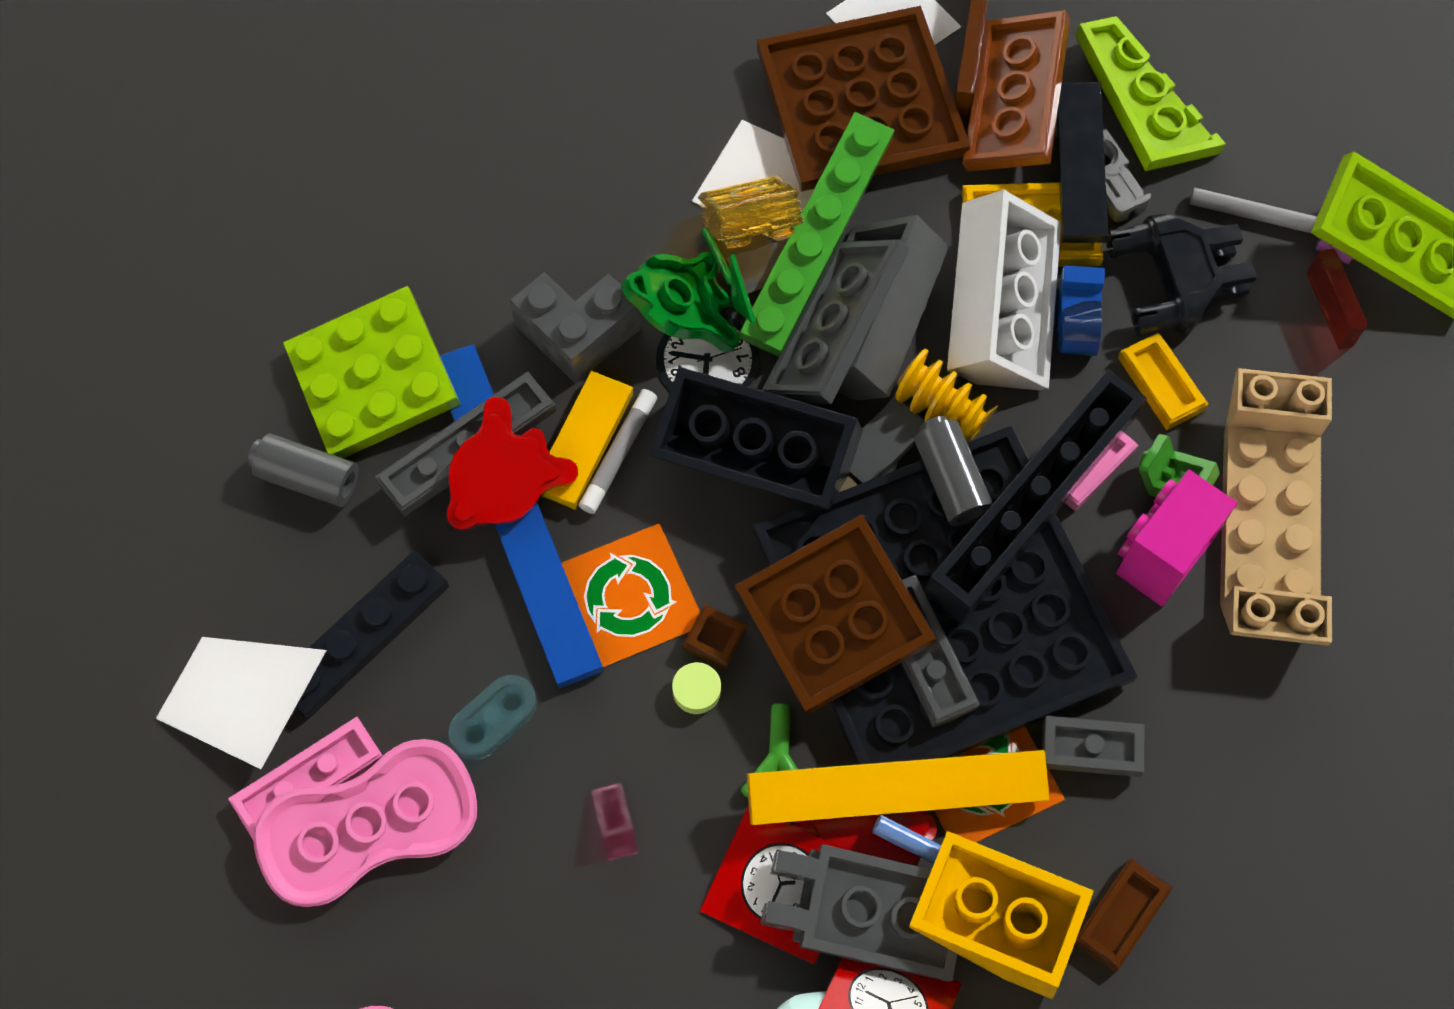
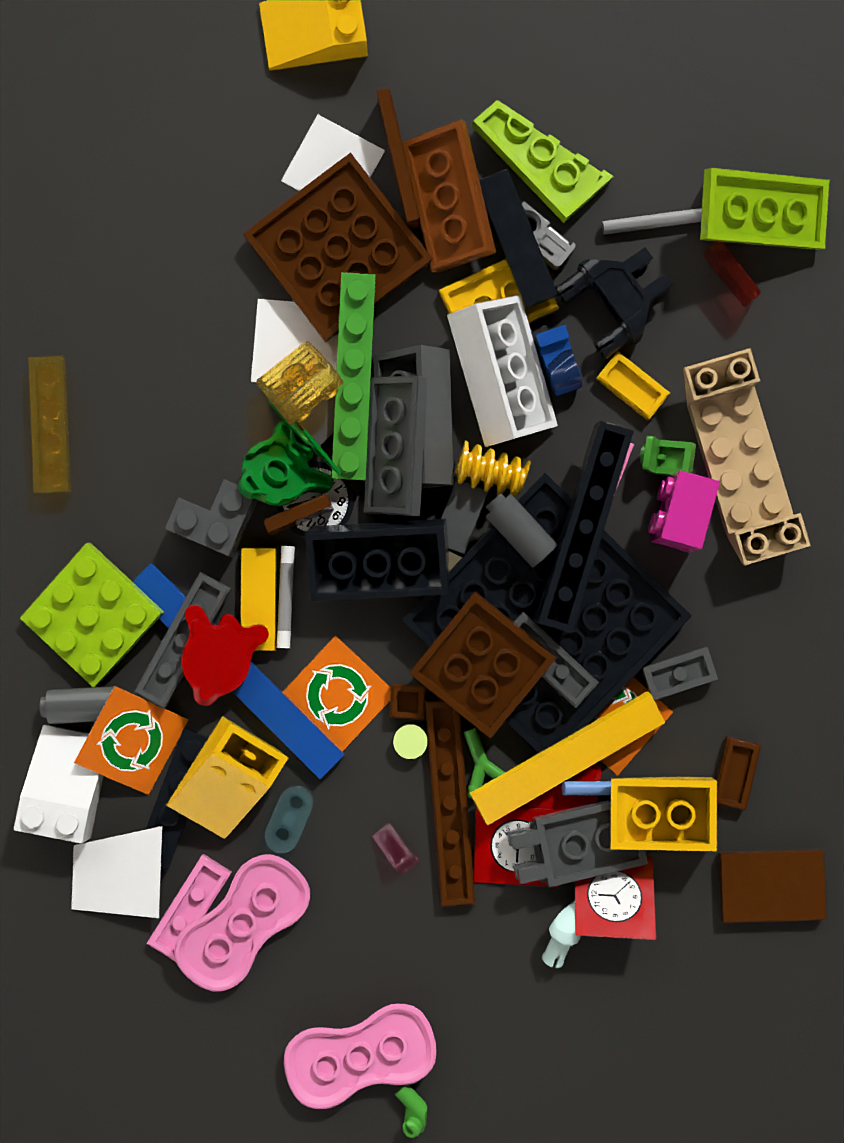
camera: 25 degrees left, 20 degrees up
(228, 556) = (58, 794): none -> white slope
(341, 534) = (131, 740): none -> orange sticker
(431, 152) = (49, 424): none -> clear yellow plate
(437, 624) = (227, 778): none -> yellow slope
(664, 357) = (298, 514): none -> reddish brown tile
(712, 793) = (450, 804): none -> reddish brown tile

